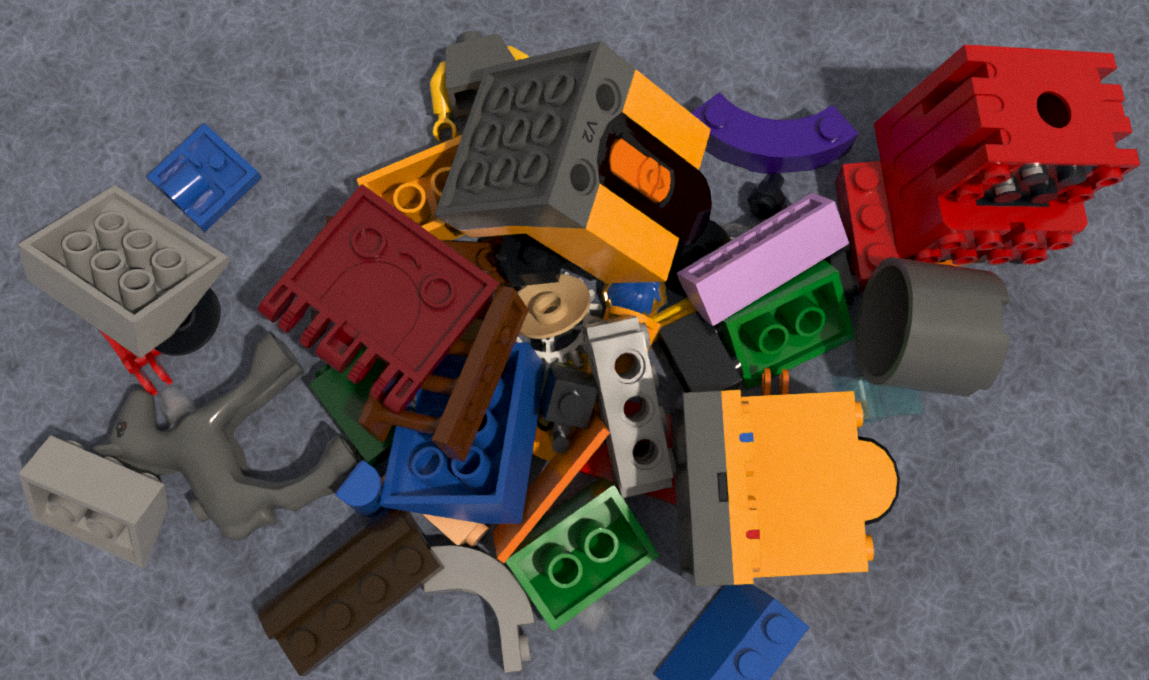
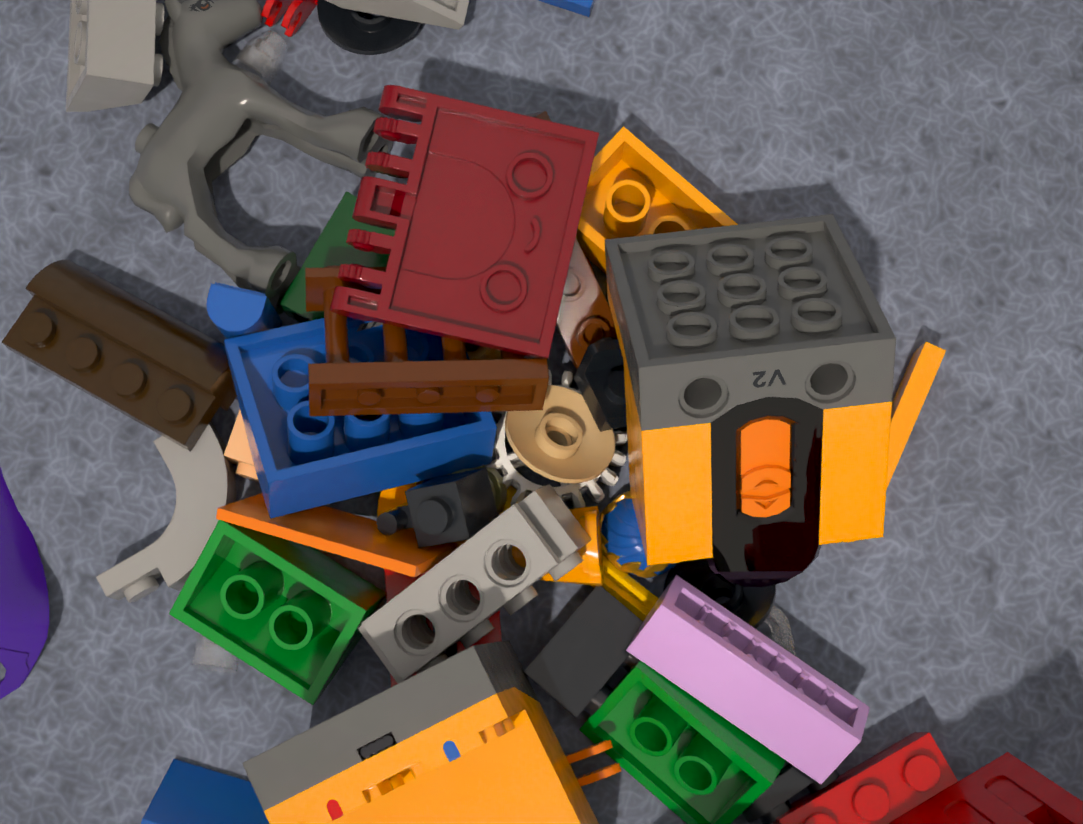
camera: 60 degrees right, 5 degrees up
(459, 77) = (847, 189): dark grey torso -> none
(767, 197) = (844, 652): black piece -> none
(771, 144) = (920, 627): dark purple brick -> none

